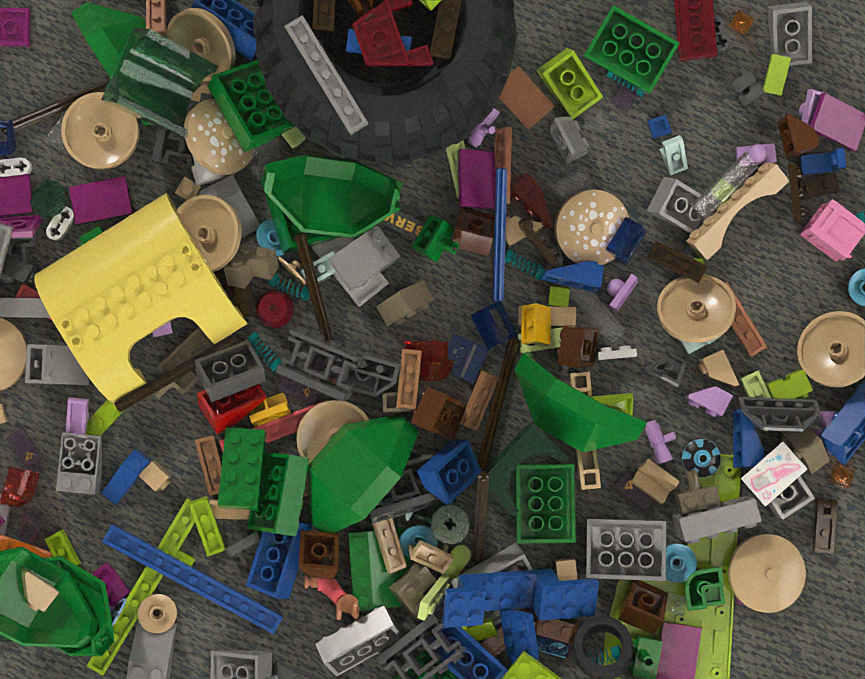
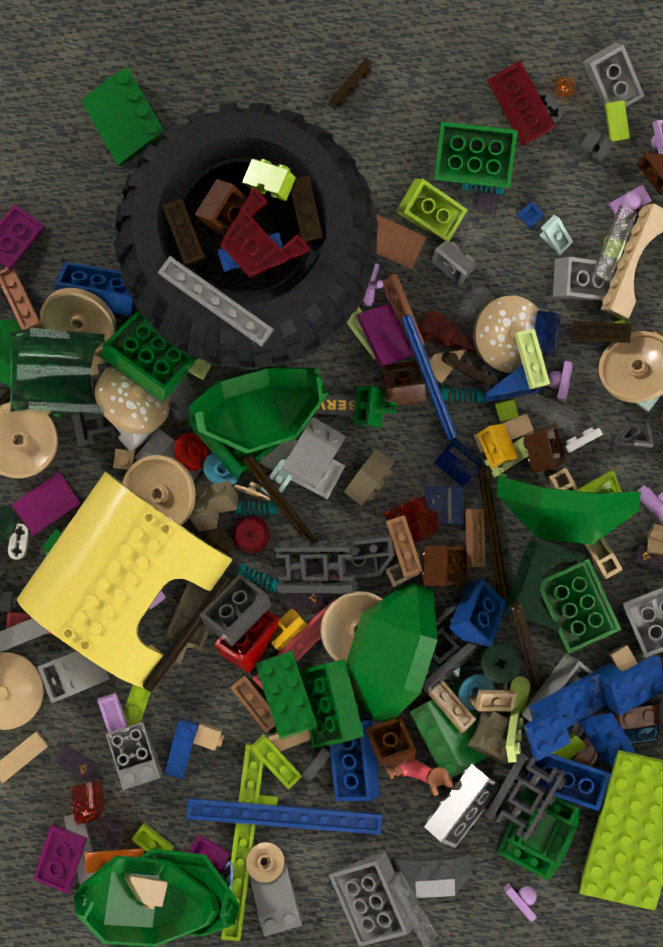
camera: 20 degrees left, 0 degrees up
(252, 209) = (191, 451): none -> red tile
(601, 258) = (532, 358): none -> yellowish green plate

